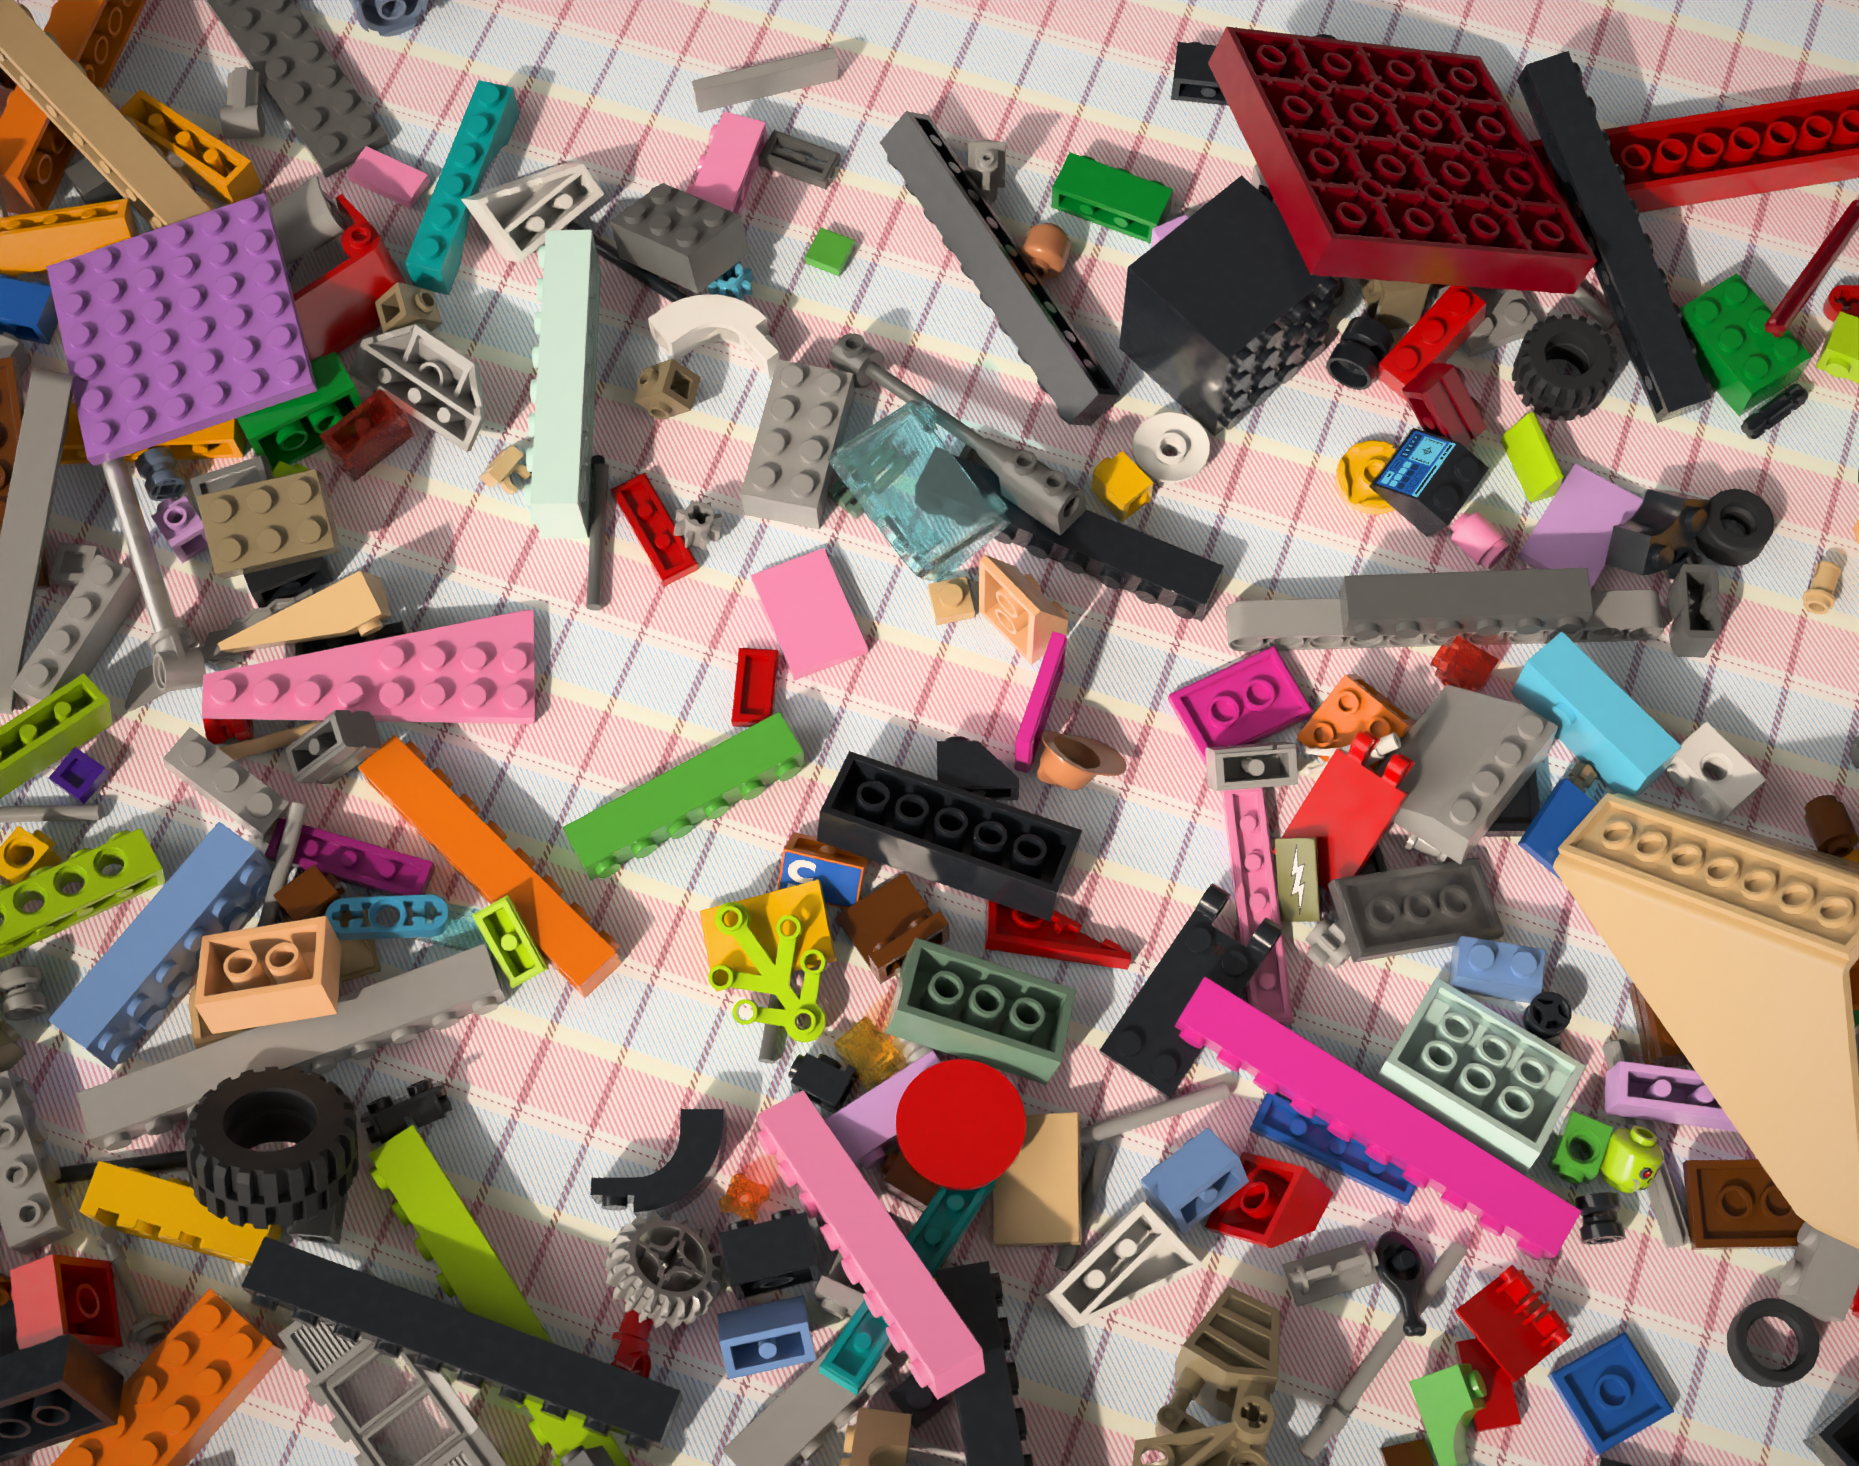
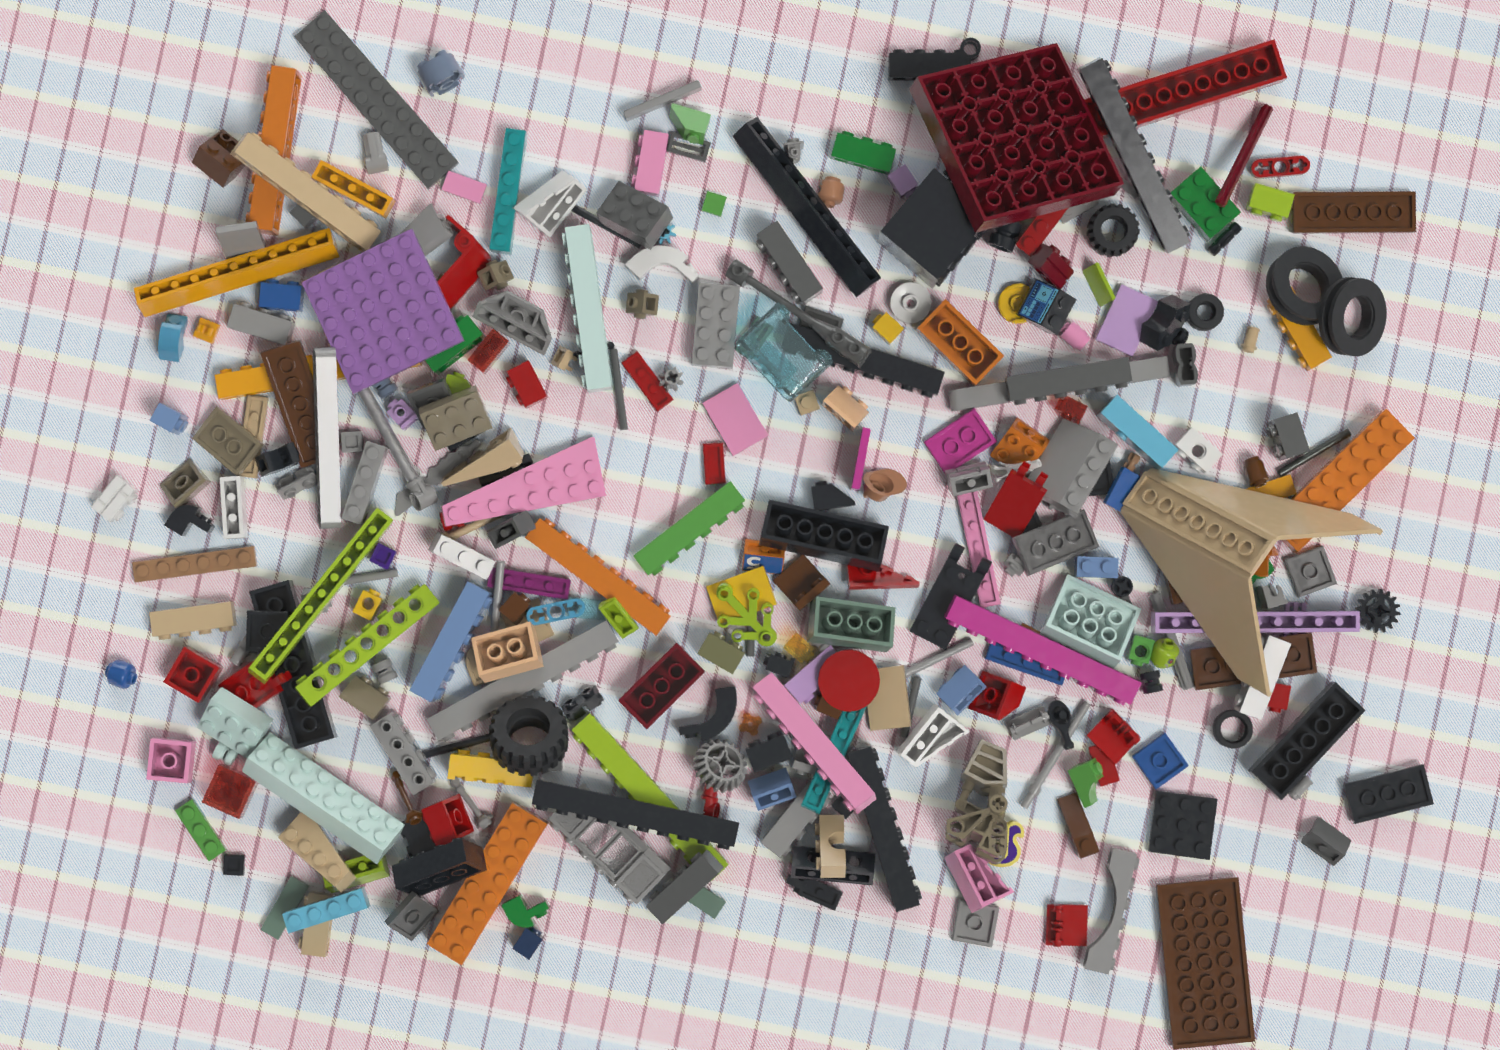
camera: 10 degrees left, 20 degrees up
(426, 504) = (527, 384): none -> red brick
(573, 1090) = (661, 685): none -> dark red brick
(706, 1036) = (721, 652): none -> olive brick
(809, 115) = (690, 123): none -> bright green slope
(951, 349) = (789, 263): none -> dark grey brick
(1257, 521) = (959, 342): none -> orange brick
(1298, 879) = (997, 534): slope -> none

